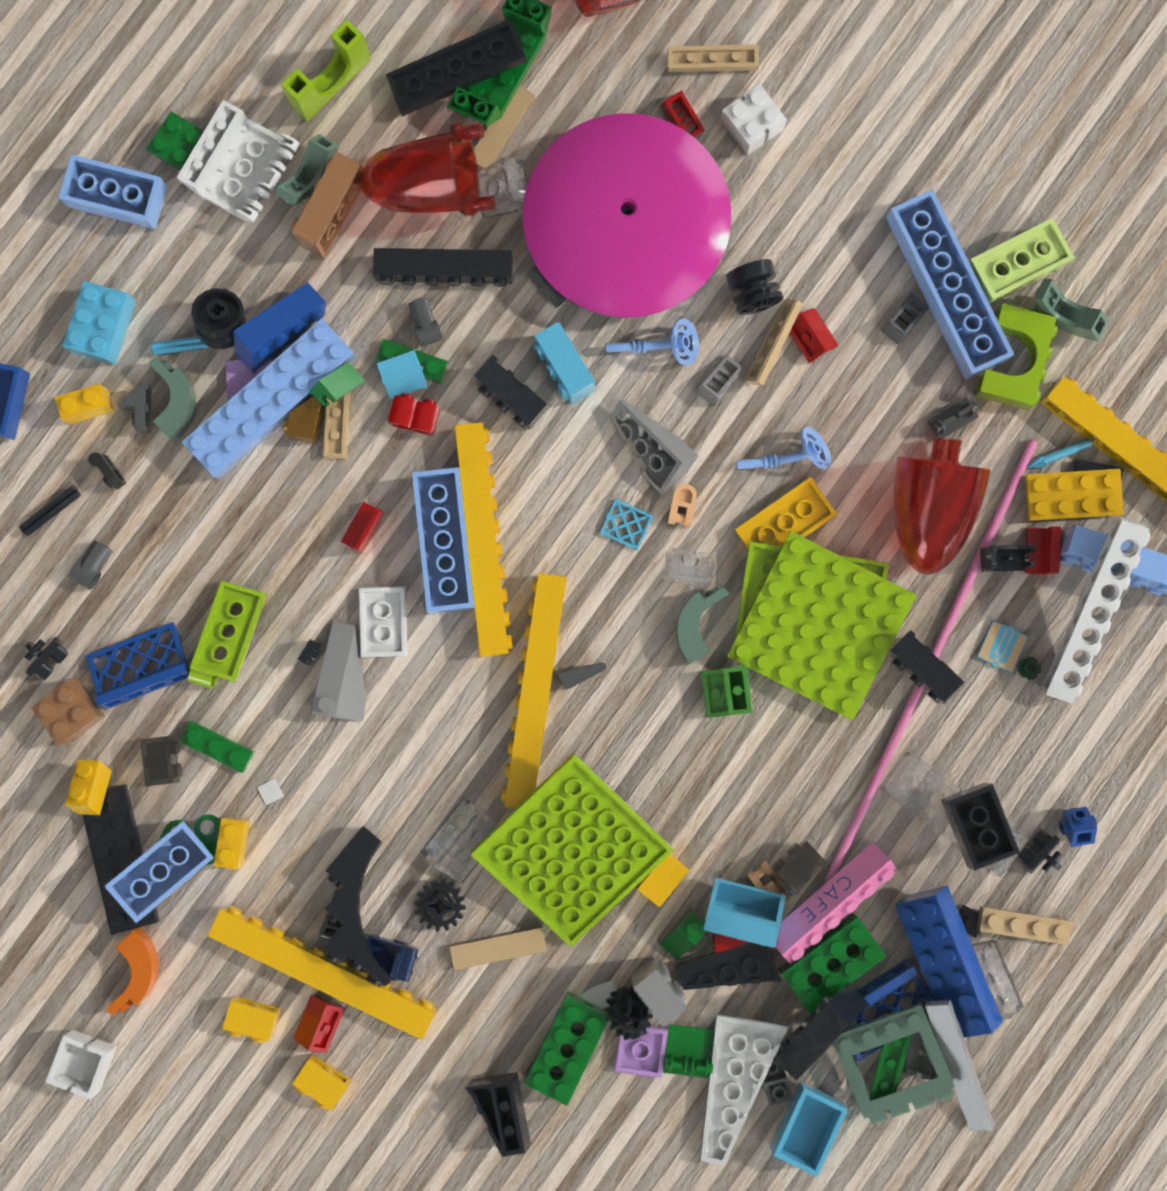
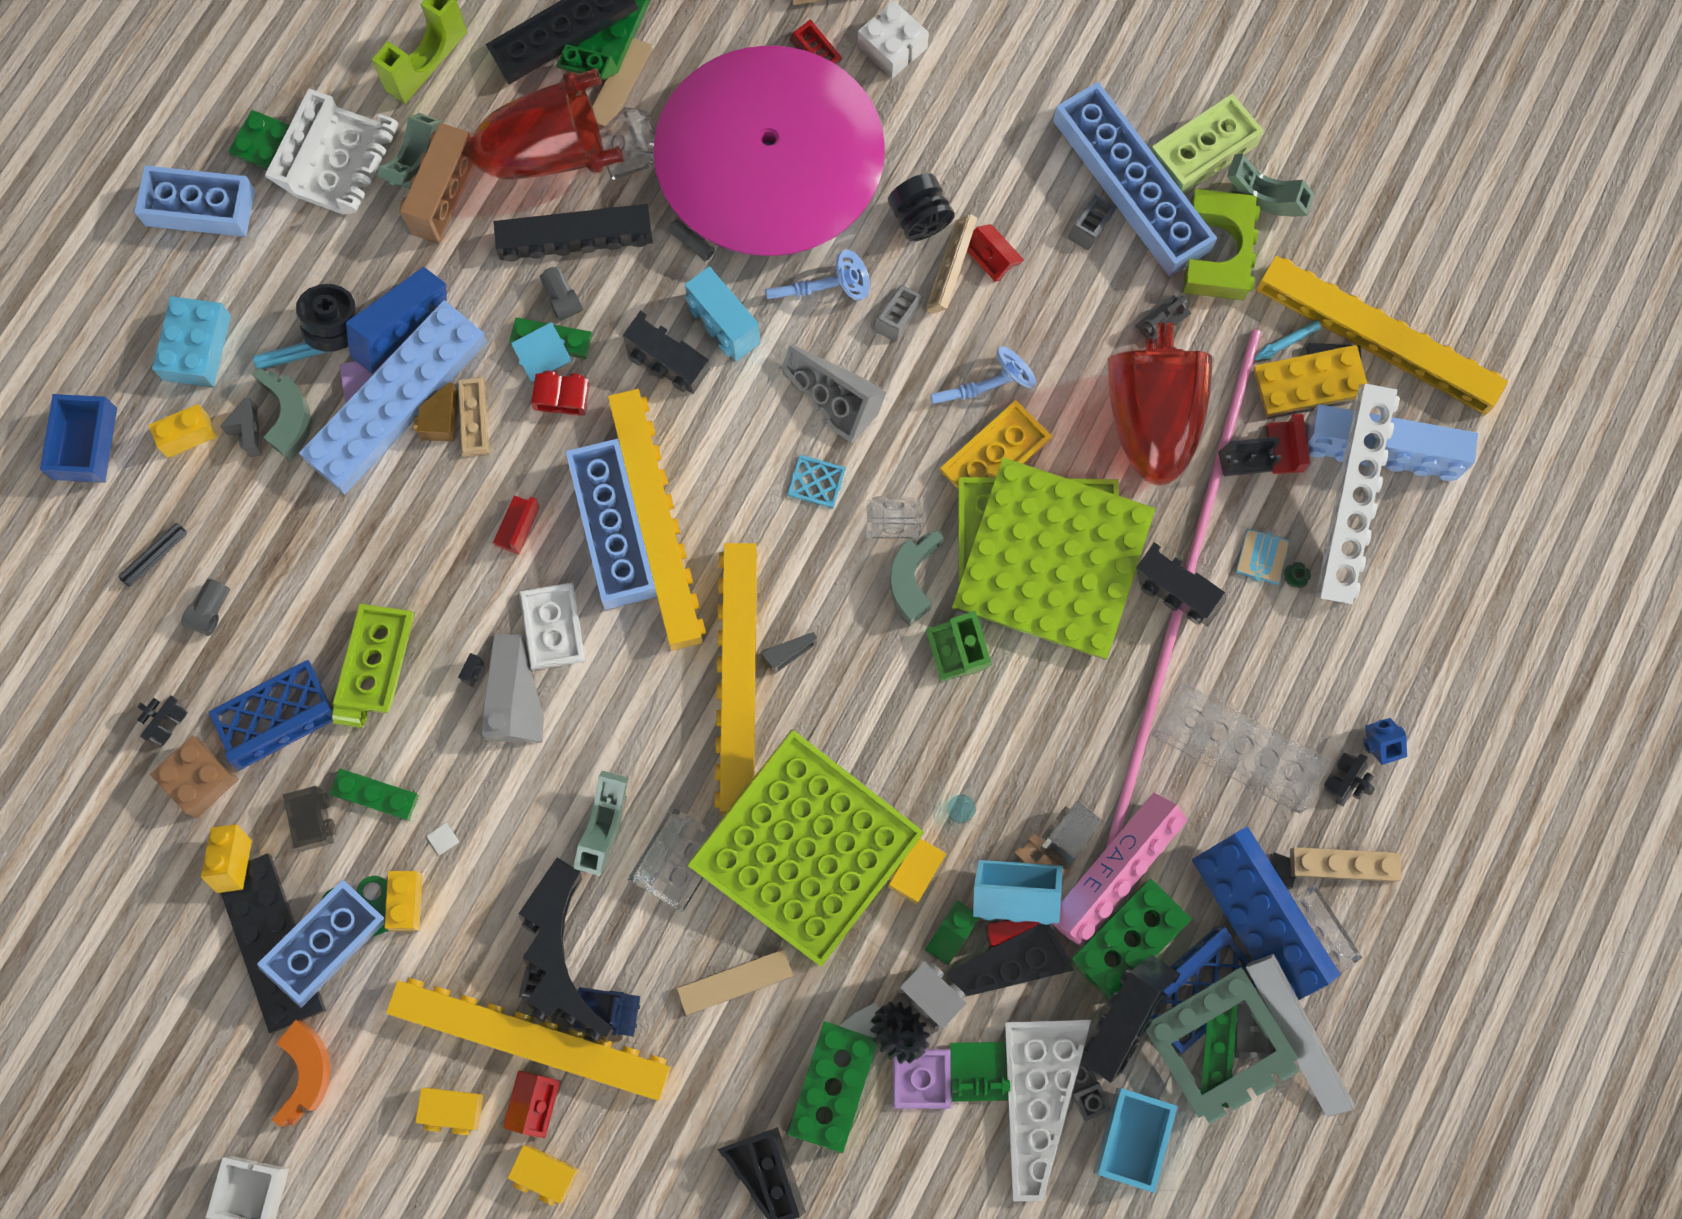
camera: 10 degrees left, 10 degrees down
(112, 476) = (222, 506): pearl dark grey plate -> none
(337, 384) = (468, 368): hinge -> none
(404, 803) = (603, 824): none -> sand green arch
(429, 904) = (659, 952): black gear -> none
(683, 497) = (877, 442): light nougat plate -> none
(707, 829) = (961, 809): none -> clear light blue tile
(980, 826) = (1271, 747): black brick -> none

